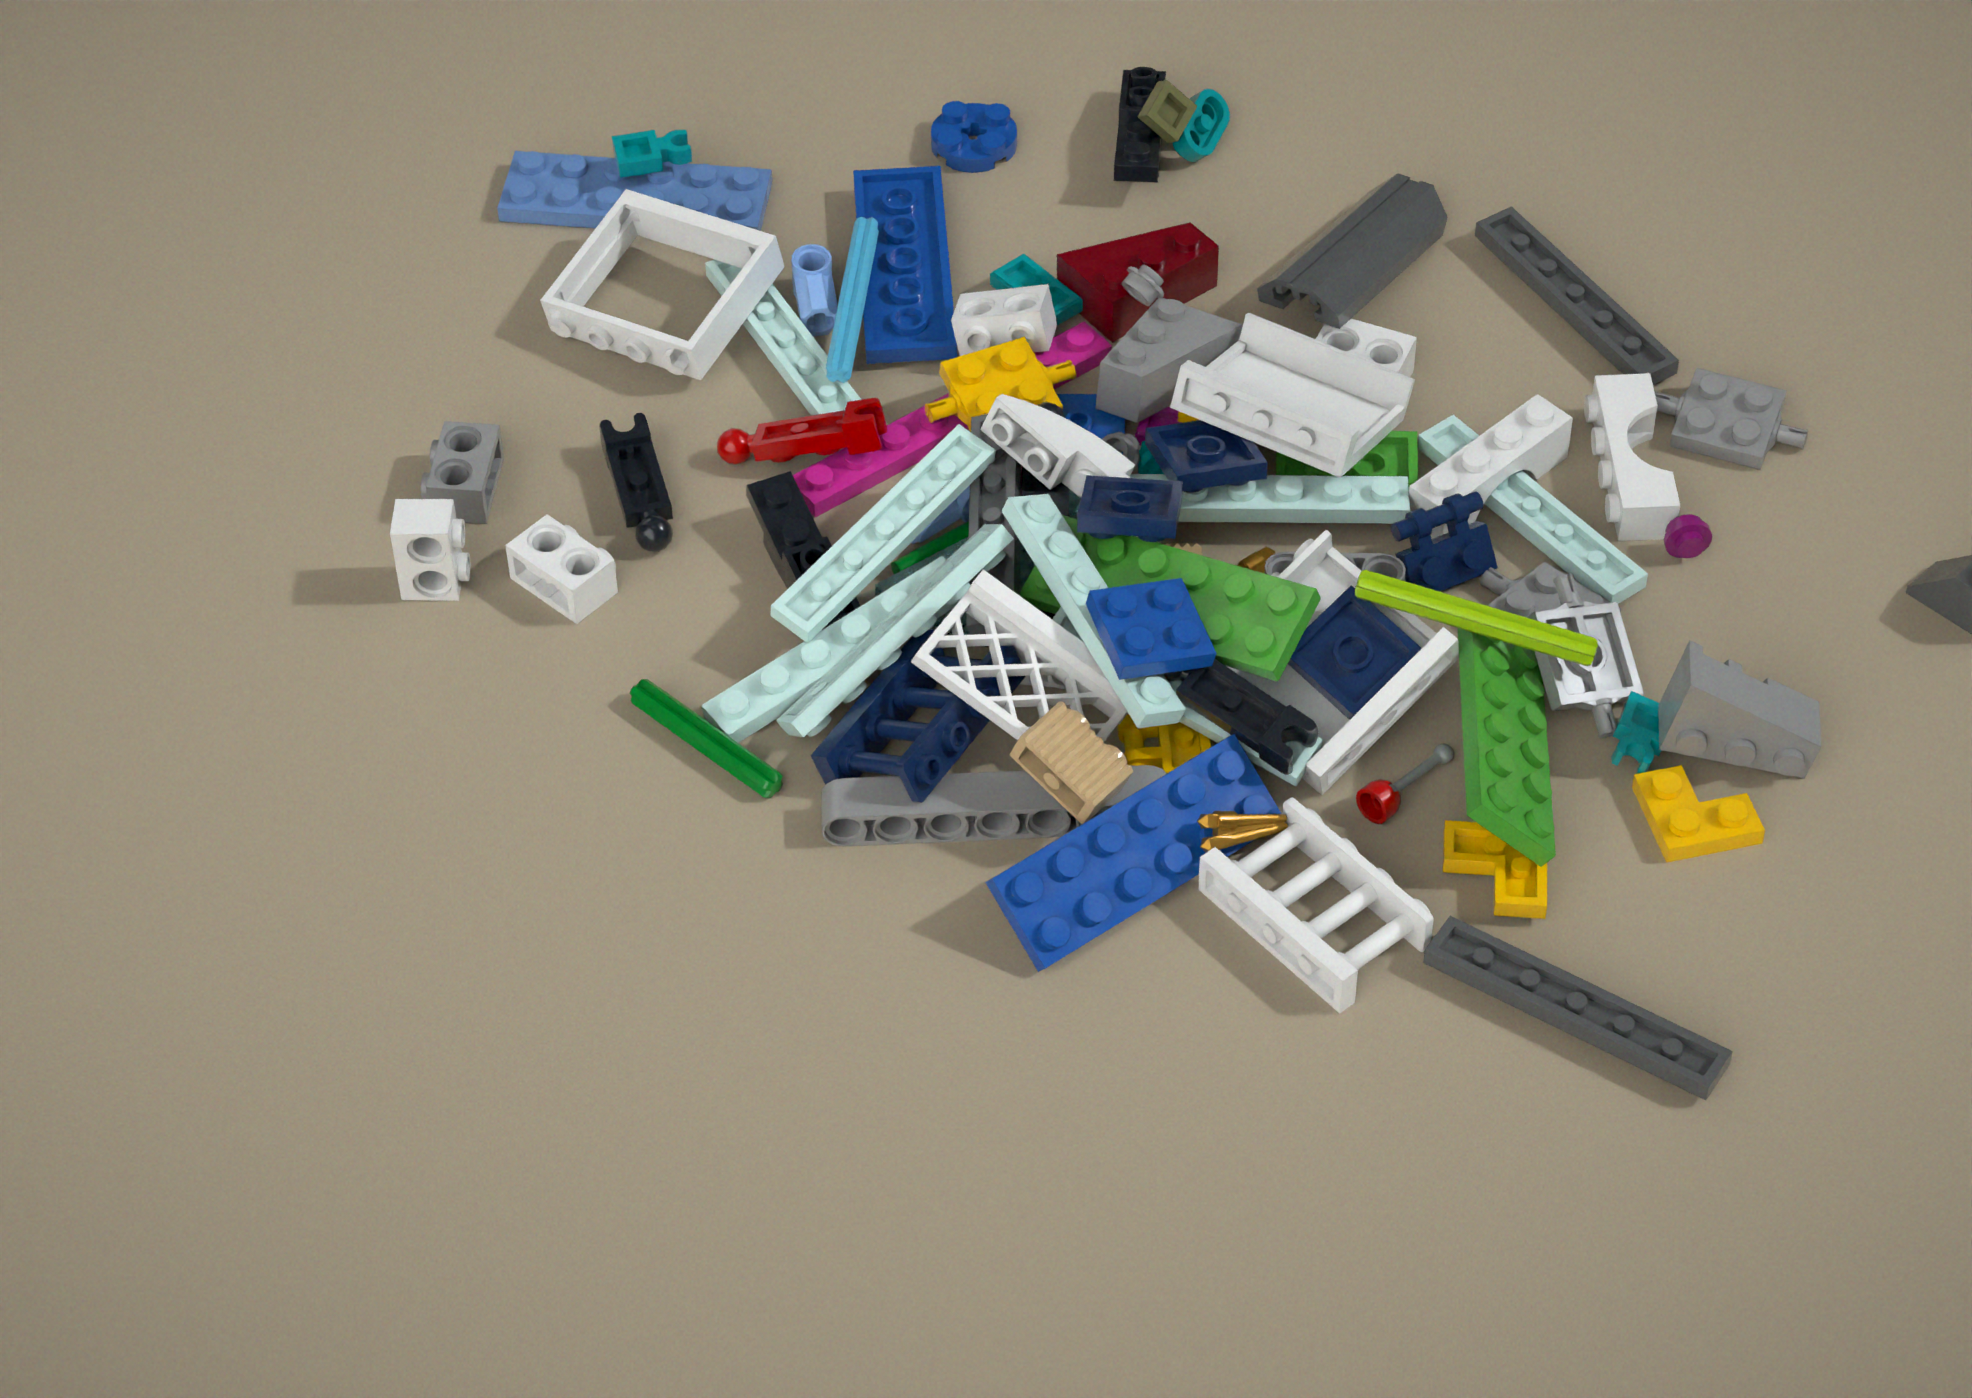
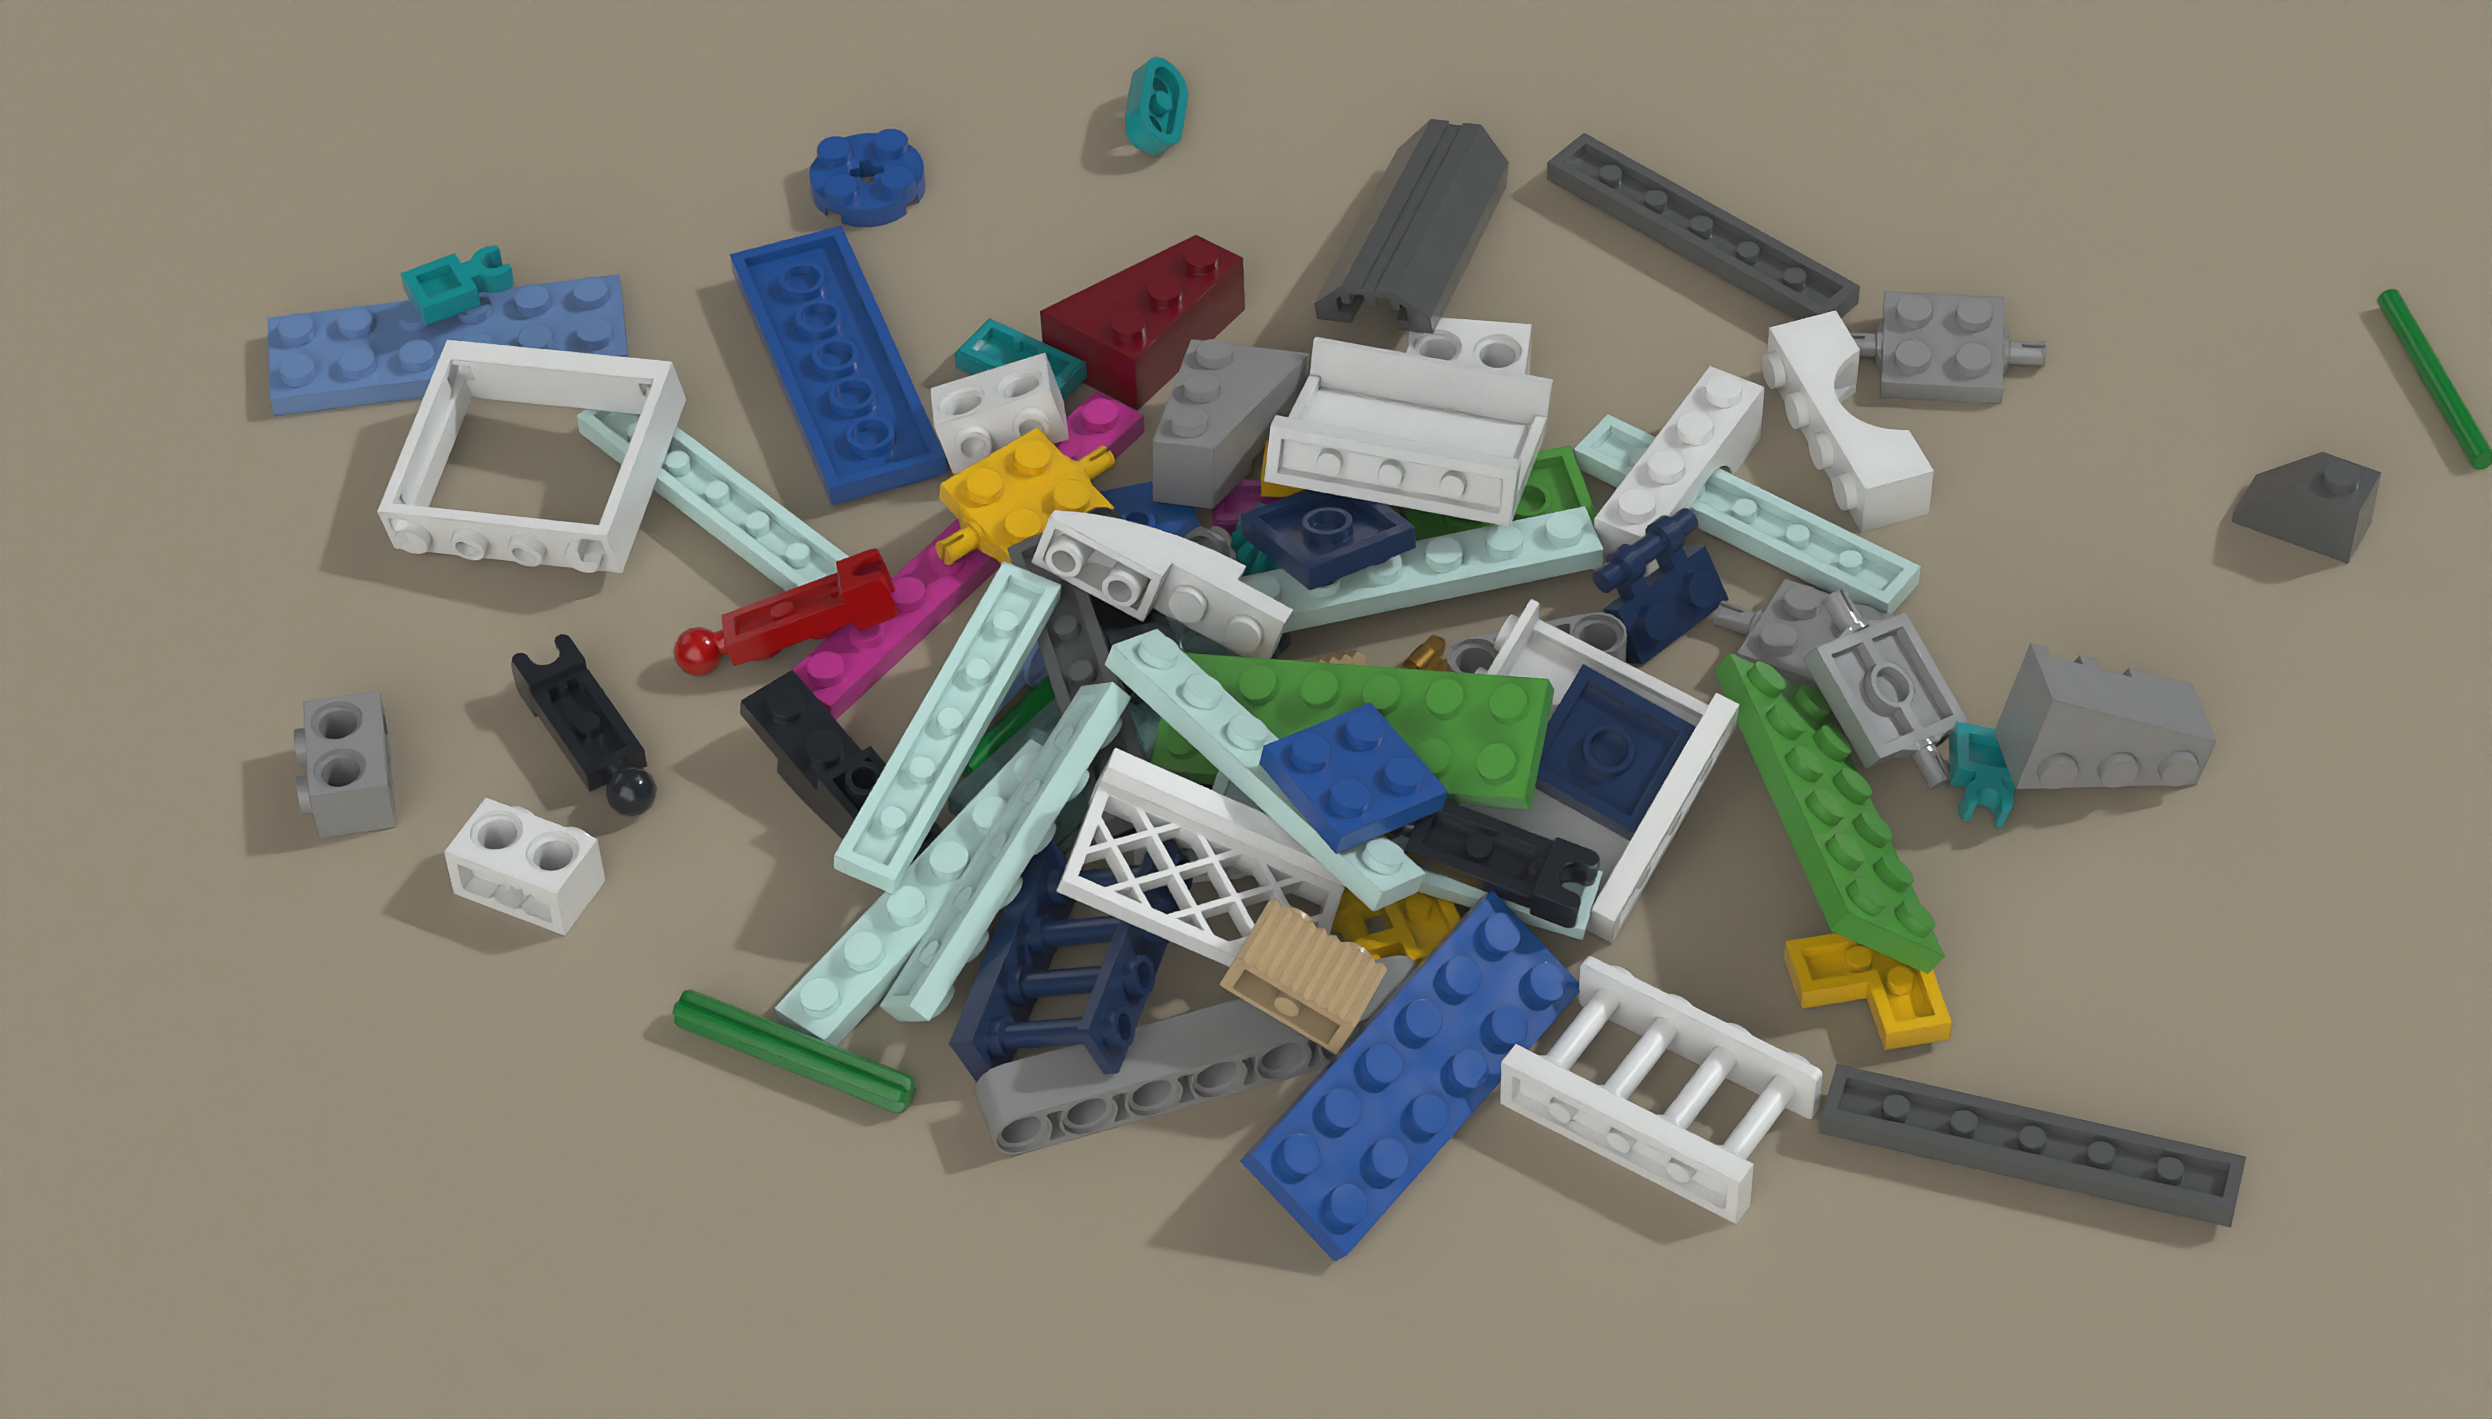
camera: 15 degrees left, 0 degrees up
(428, 549) = (341, 880): white brick -> none
(814, 288) = (732, 420): light blue piece -> none
(852, 300) = (791, 425): medium azure axle -> none
(1130, 508) = (1267, 624): dark blue plate -> none
(1137, 144) = (1080, 123): black slope -> none
(1143, 284) = (1170, 328): light grey plate -> none
(1167, 111) = (1117, 97): olive plate -> none
(1236, 828) = (1530, 1014): pearl gold piece -> none
(1382, 799) = (1700, 920): red hinge -> none
(1476, 617) = (1749, 671): lime axle -> none
(1687, 536) = (1949, 508): magenta plate -> none
(1691, 827) = (2082, 879): yellow plate -> none

